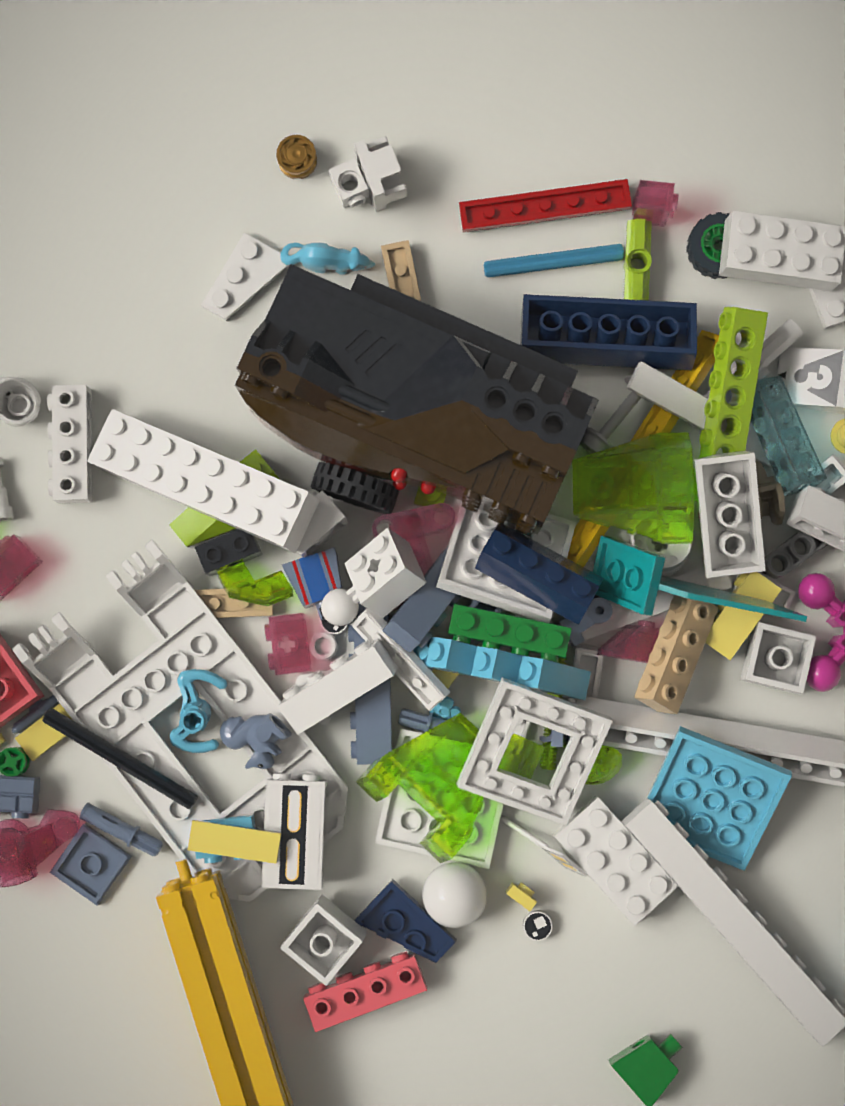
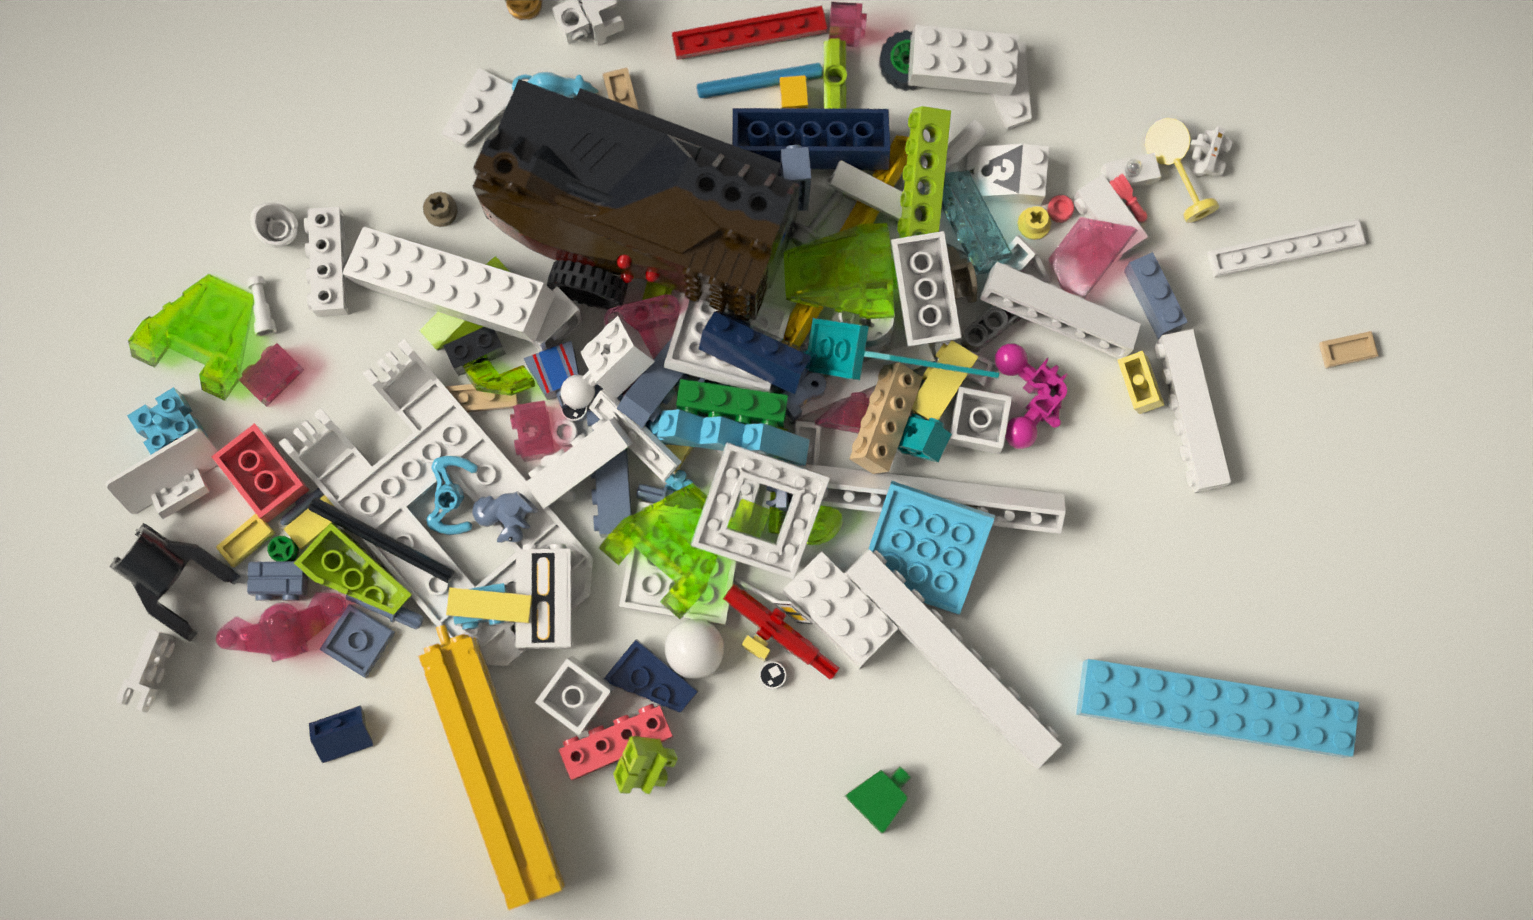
camera: 10 degrees left, 5 degrees down
(68, 965) = (340, 734): none -> dark blue panel
(86, 789) = (345, 566): none -> lime wedge
(198, 399) = (440, 217): none -> dark tan piece
(394, 1021) = (643, 765): none -> lime hips
(540, 874) = (772, 625): none -> red piece
(591, 278) = (793, 92): none -> yellow brick
(593, 375) = (796, 167): none -> sand blue brick
(718, 677) = (924, 438): none -> teal brick

